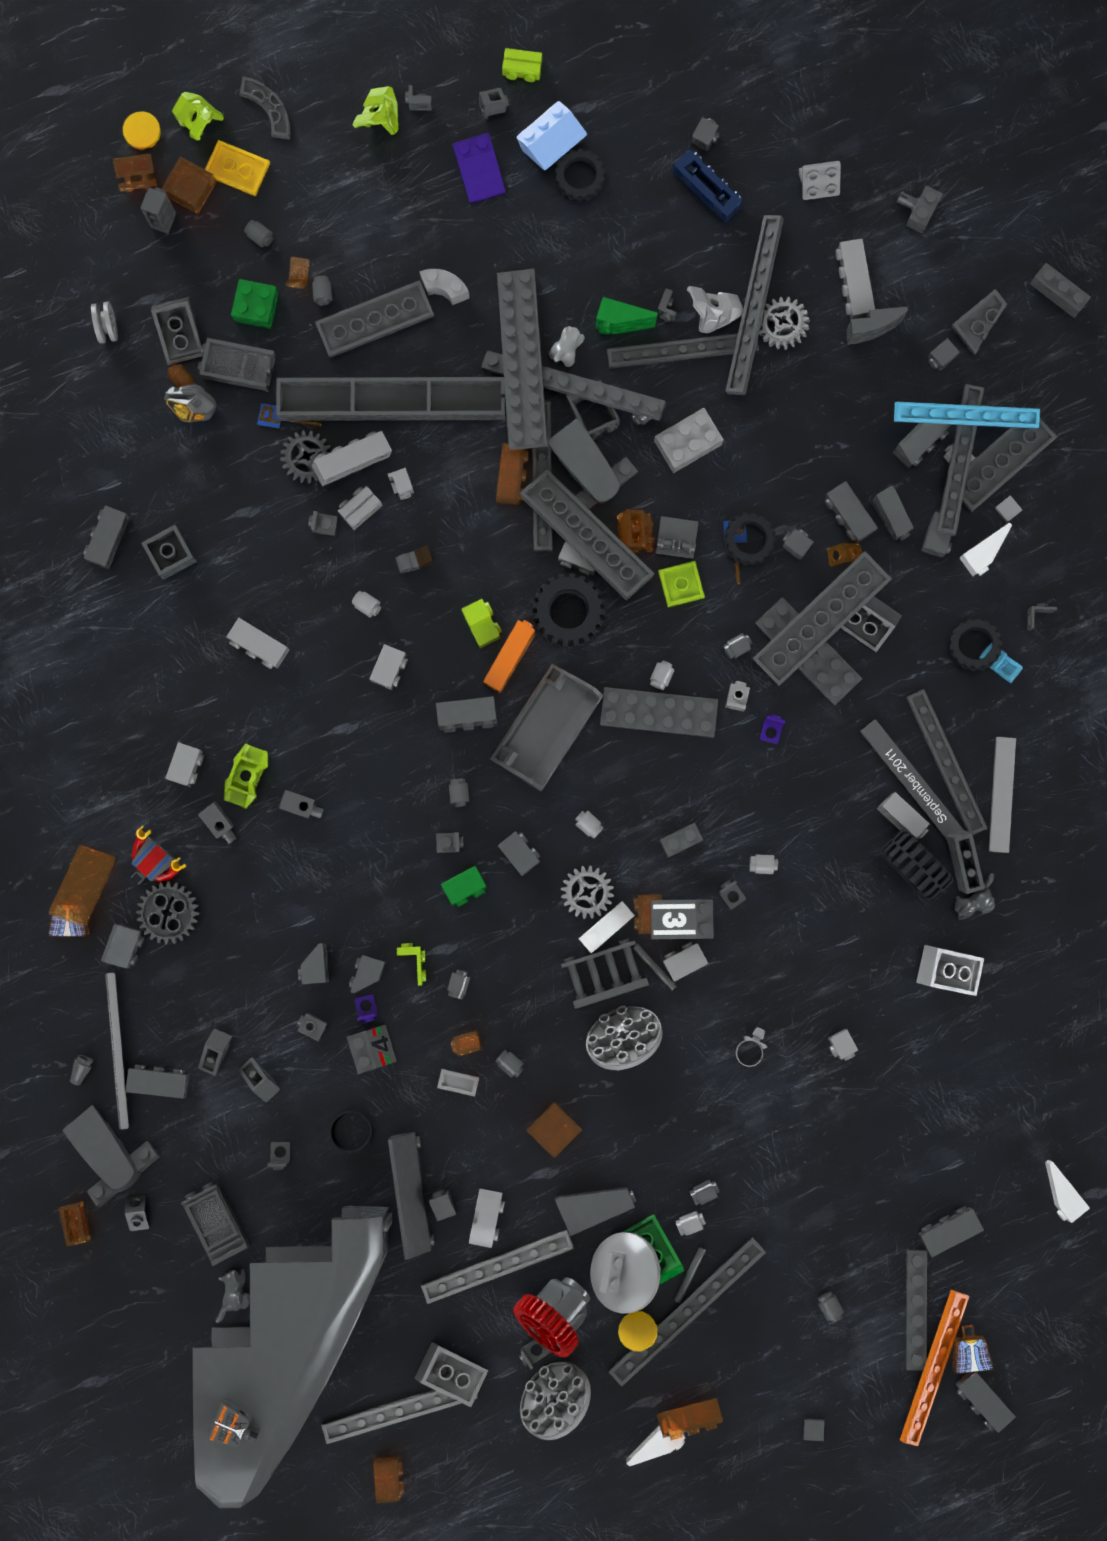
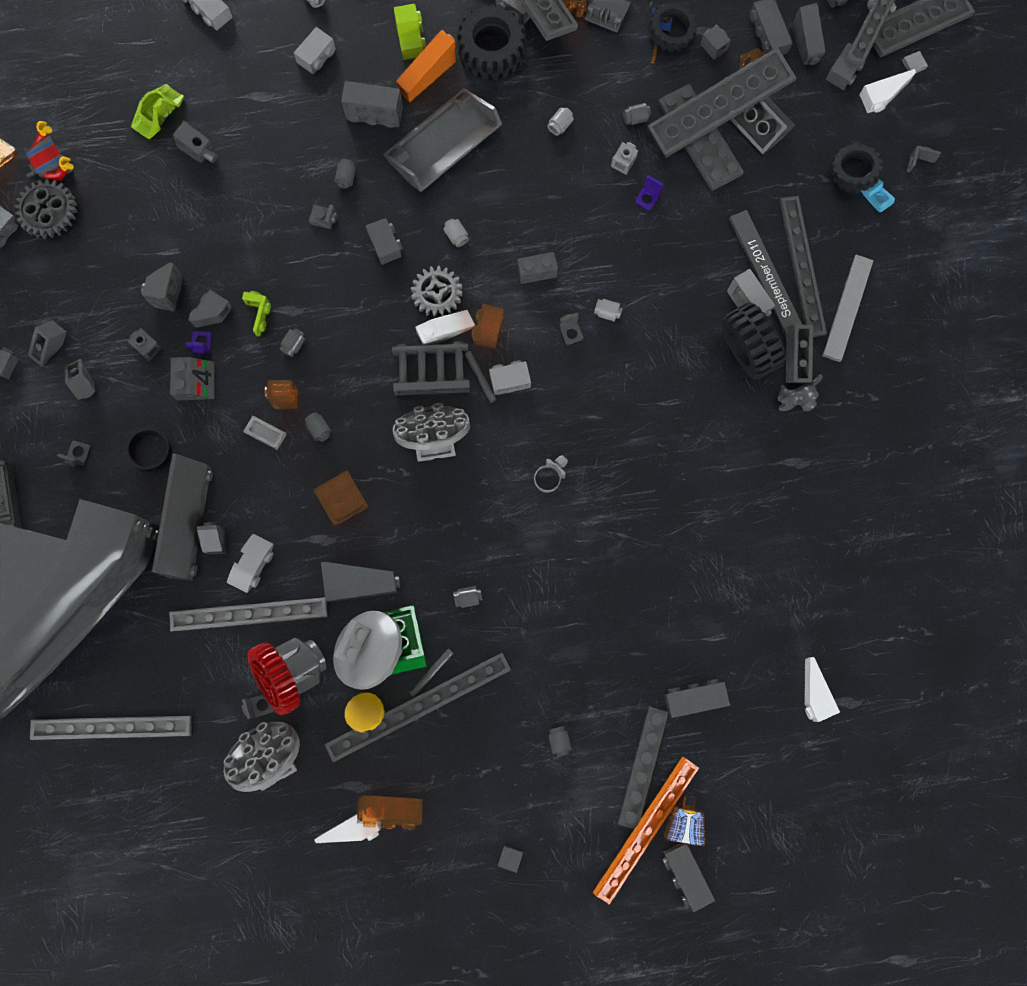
camera: 10 degrees right, 5 degrees down
(184, 765) = (104, 85): light grey brick -> none
(214, 814) = (116, 138): dark grey torso -> none
(387, 1479) = (76, 791): clear orange brick -> none
(451, 1374) = (170, 704): light grey slope -> none
(464, 886) = (323, 253): green brick -> none
(659, 712) = (549, 154): dark grey plate -> none
(681, 584) = (600, 51): lime tile -> none
(682, 919) = (517, 336): dark grey slope -> none
(690, 1223) = (445, 623): light grey brick -> none
(842, 1045) = (638, 494): light grey brick -> none
(950, 970) = (759, 452): light grey slope -> none

